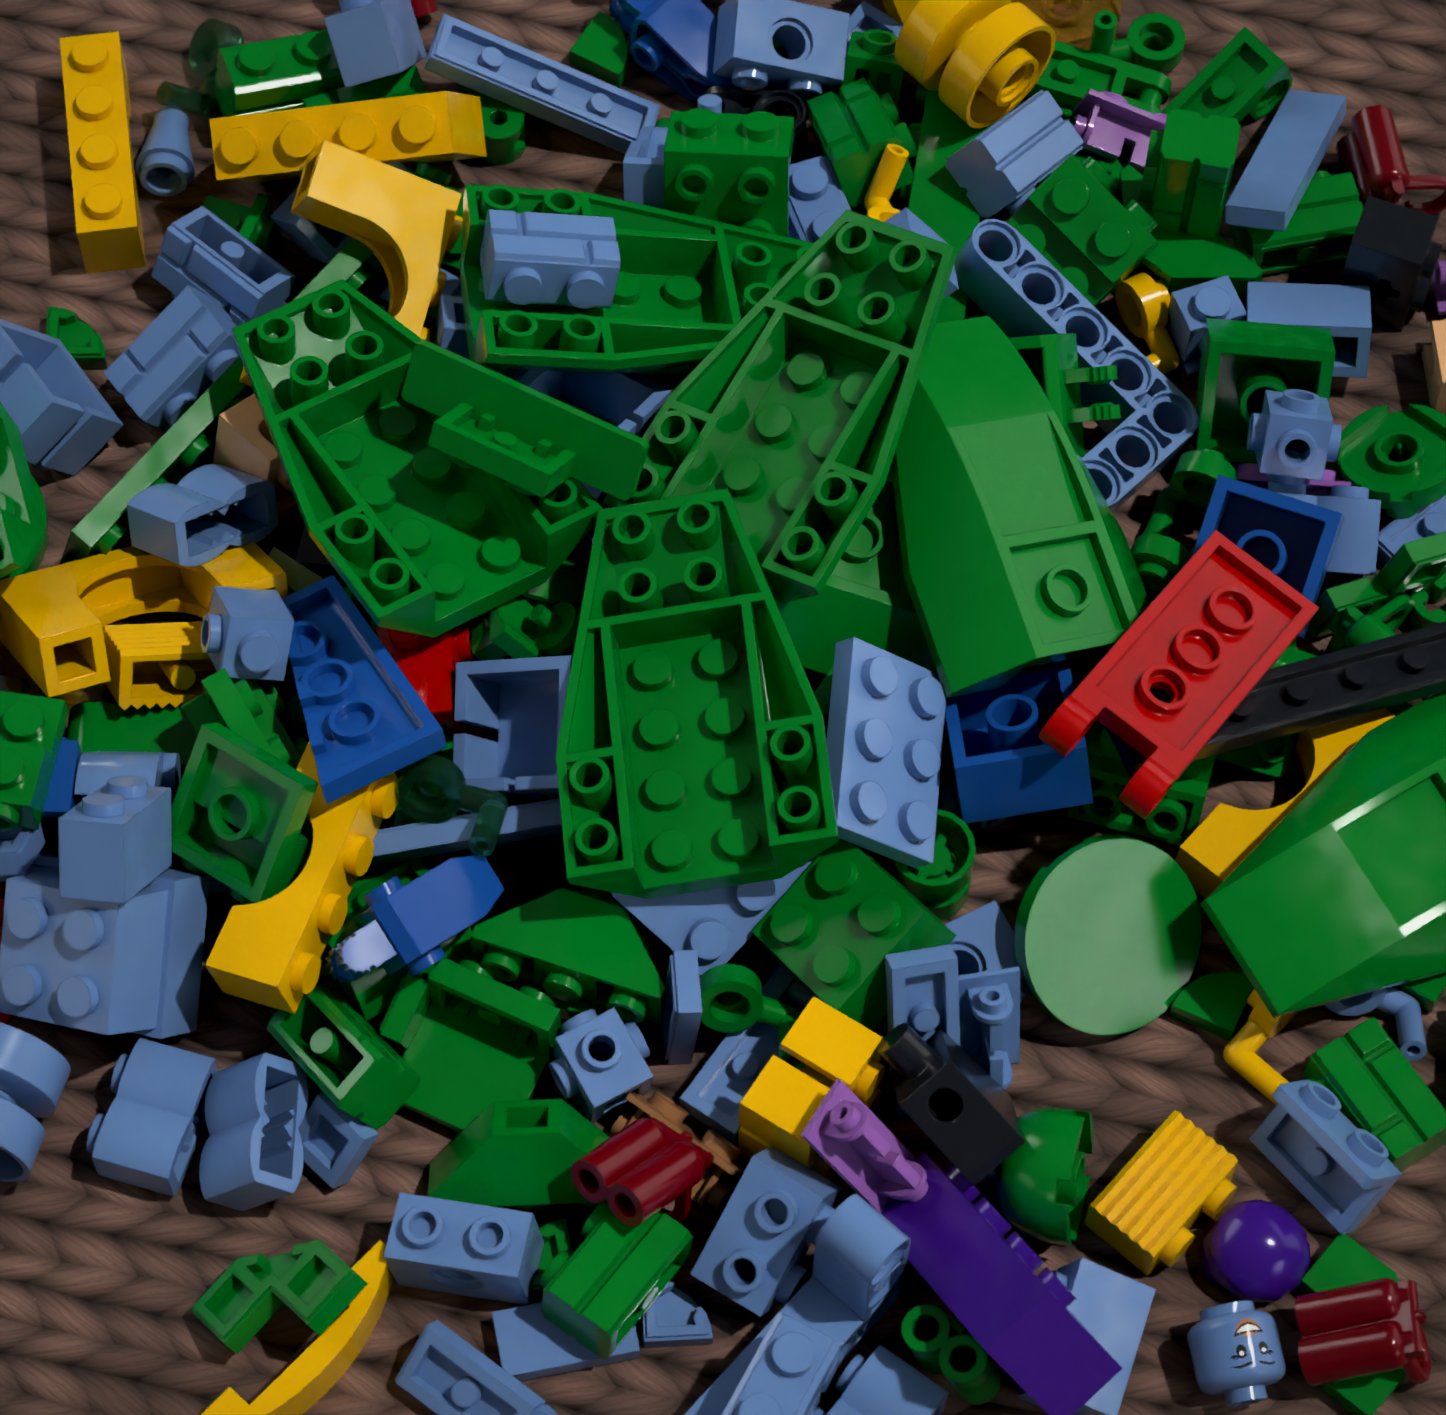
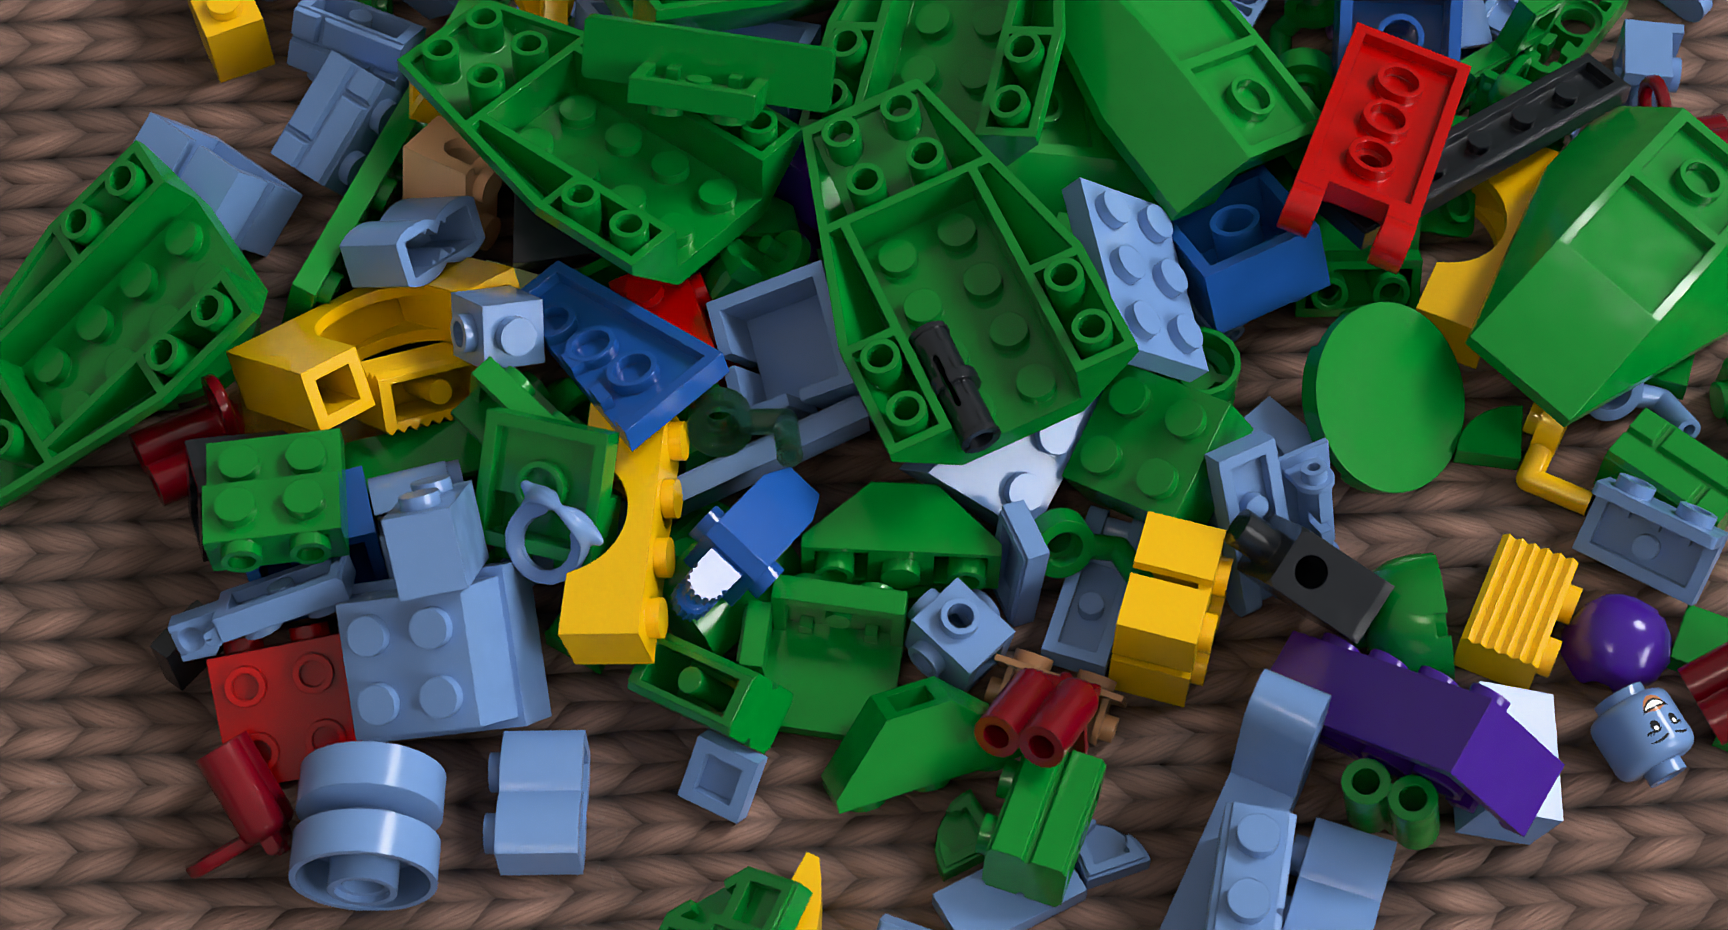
camera: 15 degrees left, 5 degrees down
(77, 337) = (237, 136): green tile -> none
(252, 861) = (536, 503): none -> medium blue piece
(253, 1132) = (646, 788): medium blue brick -> none
(464, 1248) = (888, 840): medium blue brick -> none
(654, 824) = (955, 387): none -> black pin
(767, 1232) = (1174, 742): medium blue brick -> none
(864, 1150) = (1246, 634): medium lavender hinge -> none

